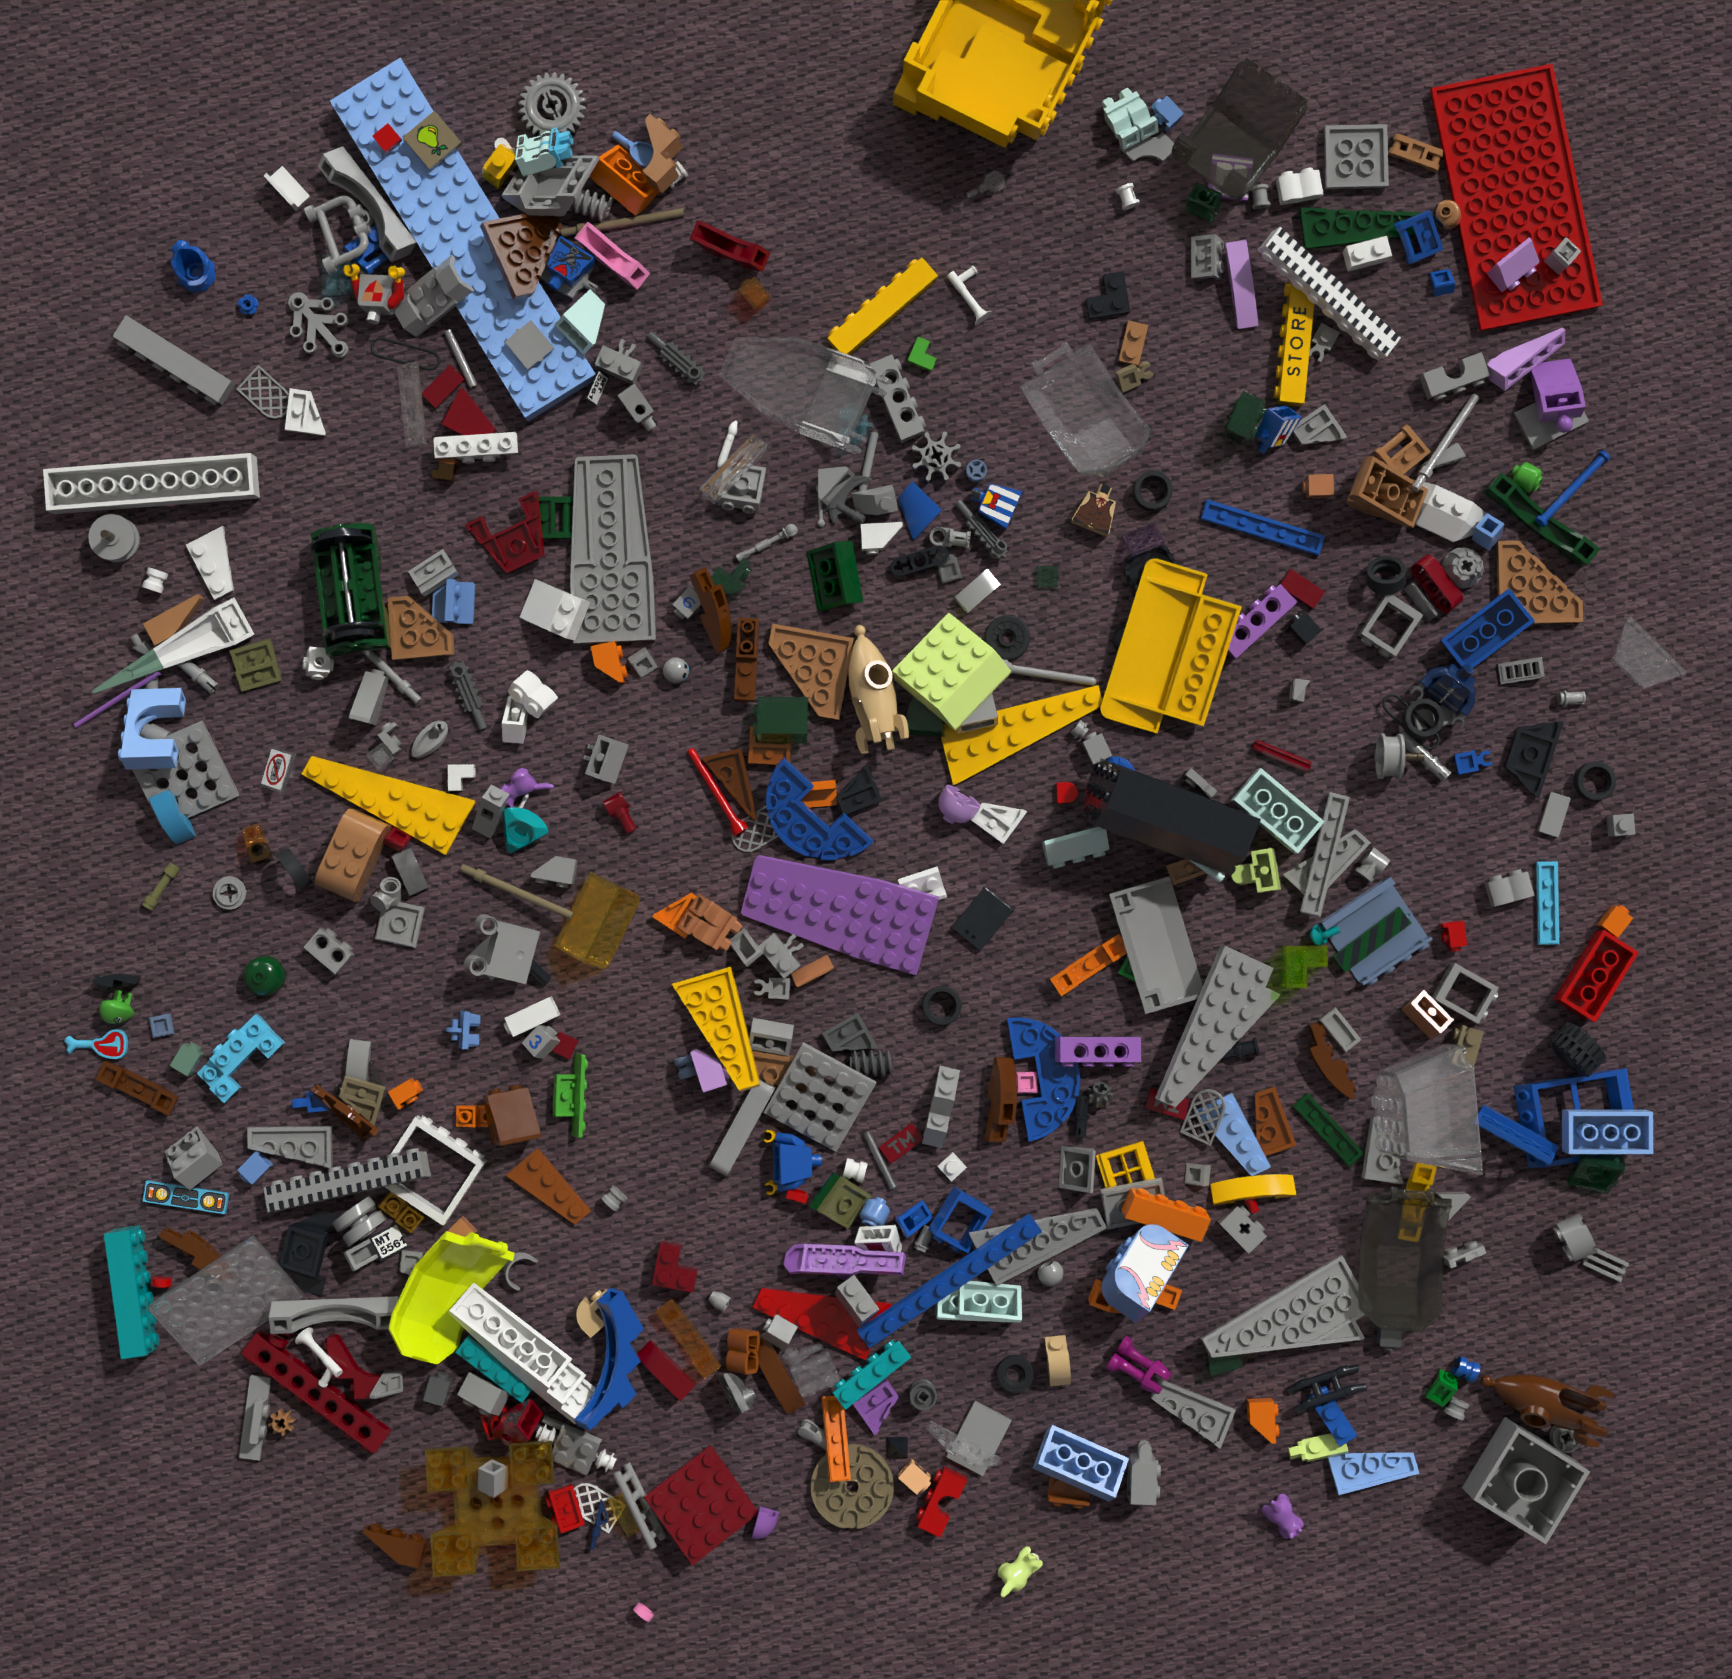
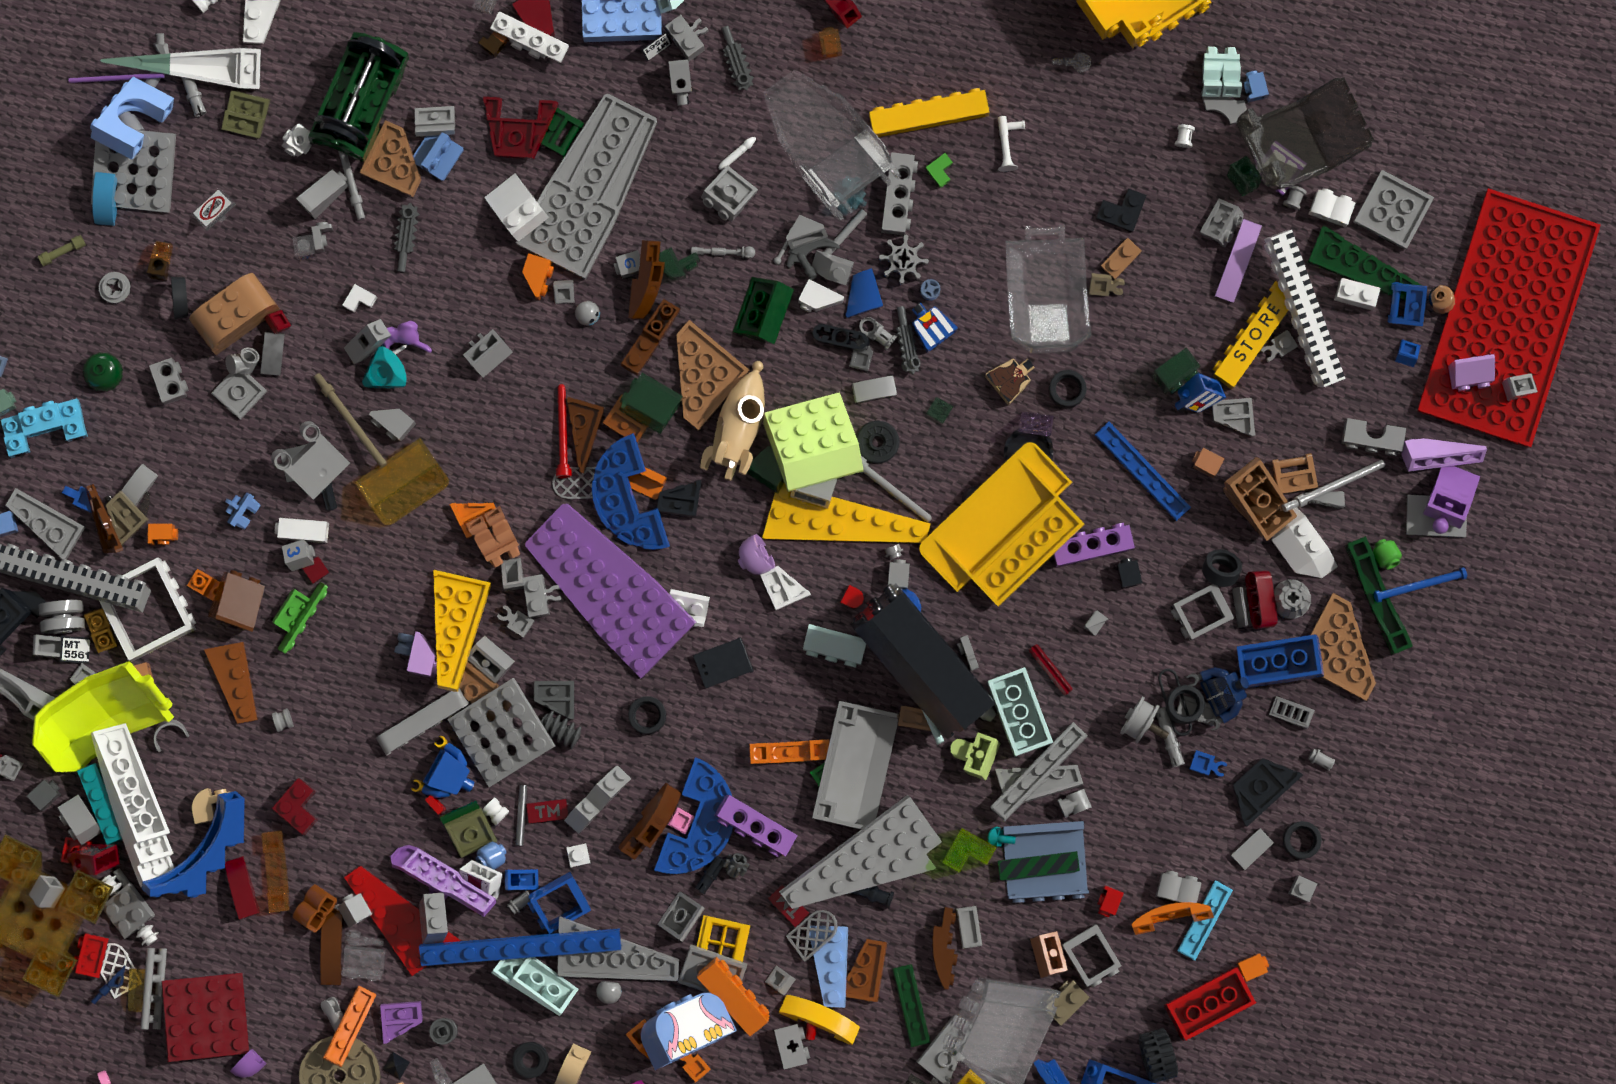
camera: 30 degrees right, 5 degrees down
(172, 620) = (199, 39): medium nougat slope -> none
(415, 809) = (305, 304): yellow wing -> none
(429, 739) = (352, 255): light grey arm -> none
(514, 722) = (431, 279): white slope -> none
(532, 694) = (457, 265): white brick -> none
(618, 808) = (474, 399): dark red pin -> none
(719, 1300) = (319, 855): light grey hose -> none
(733, 468) = (730, 175): clear tile -> none
(737, 1393) = (289, 938): flat silver slope -> none
(812, 971) = (555, 625): nougat slope -> none
(867, 1377) = (410, 989): teal brick -> none
(1302, 589) = (1146, 540): dark red tile -> none
(1416, 152) = (1446, 234): medium nougat plate -> none
(1488, 531) = (1328, 580): medium blue brick -> none
(1538, 899) = (1171, 911): none -> orange slope
(1643, 657) = (1401, 760): clear wing -> none

